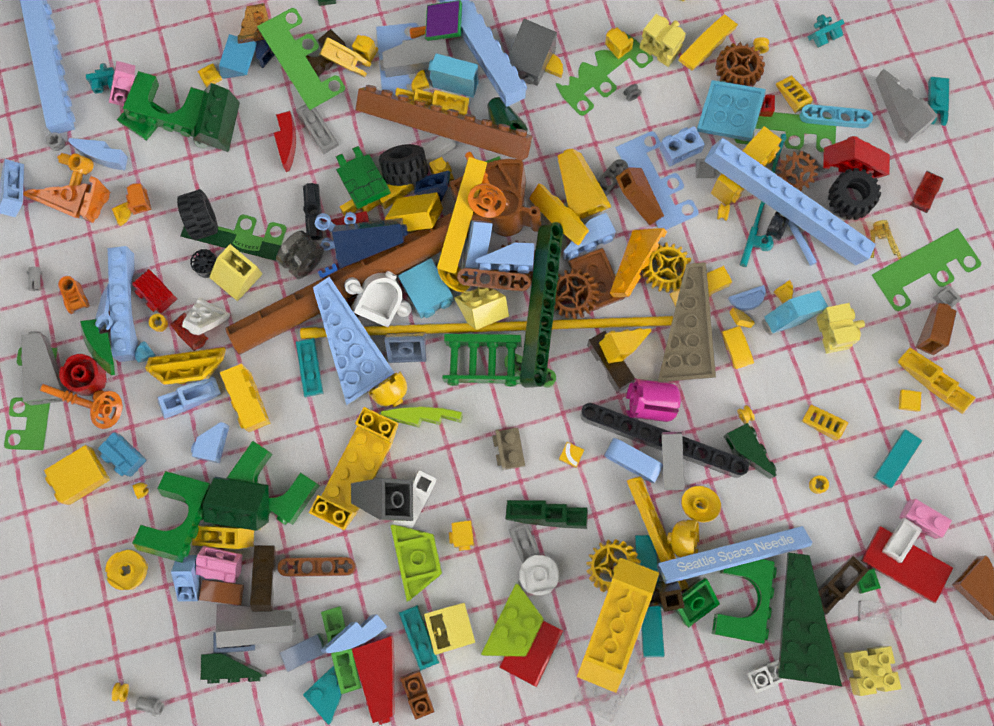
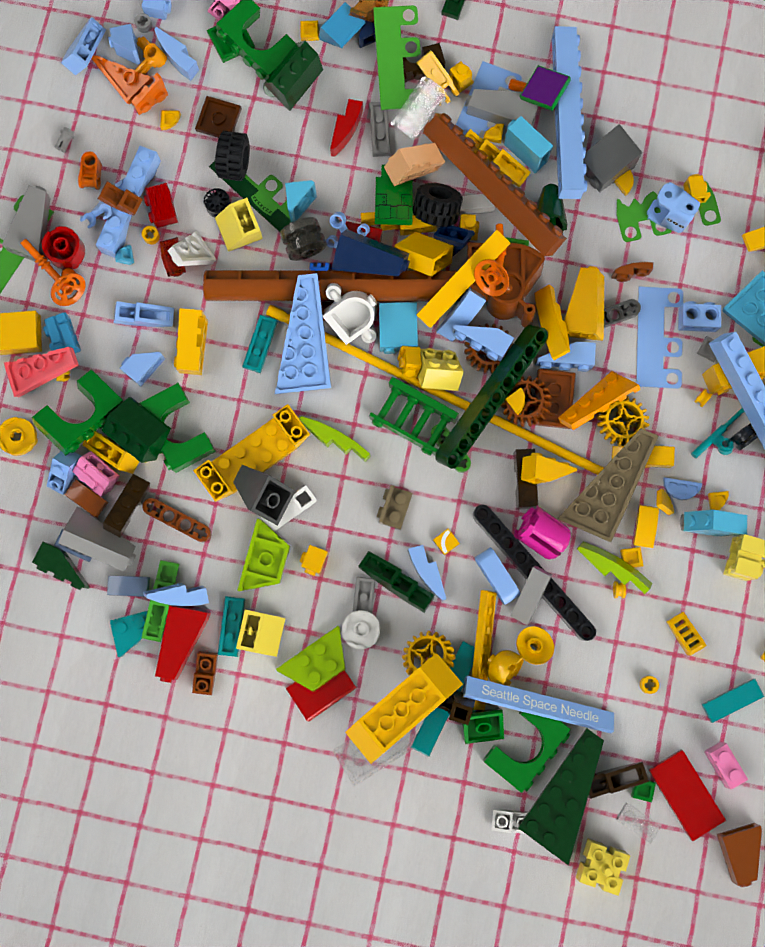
camera: 25 degrees right, 5 degrees up
(46, 166) = (124, 42): none -> light blue slope
(98, 345) = (88, 229): green slope -> none
(111, 503) = (35, 371): none -> coral wing
(113, 304) = (120, 200): none -> dark orange slope
(137, 198) = (188, 113): orange brick -> none
(165, 188) = (217, 116): none -> reddish brown tile
(185, 366) = (154, 286): yellow wedge -> none
(277, 219) = (299, 197): none -> medium azure slope
(312, 201) = (339, 195): black piece -> none
(343, 91) = (419, 108): none -> clear brick
(363, 140) = (413, 163): none -> light nougat wedge
(390, 390) = (318, 401): yellow cylinder -> none
(406, 347) = (352, 370): sand blue slope -> none
(451, 280) = (427, 335): yellow dish -> none
(452, 312) = (410, 361): none -> yellow brick
(494, 279) = (461, 352): dark orange beam -> none
(566, 297) = (517, 400): none -> yellow tile
(569, 490) = (427, 571): none -> light blue slope
(598, 140) = (626, 272): none -> dark orange slope
(610, 64) = (676, 208): none -> light blue piece
(632, 92) = (682, 243): dark grey bush -> none
(639, 193) = (636, 338): dark orange slope -> none
(662, 39) = (738, 208): light yellow brick -> none
(724, 396) = (607, 562): none -> lime slope
(740, 381) = (632, 556): none -> yellow tile
(745, 445) = (603, 617): dark green slope -> none
(802, 243) = (759, 465): light blue bar -> none
(902, 540) = (694, 772): white tile -> none

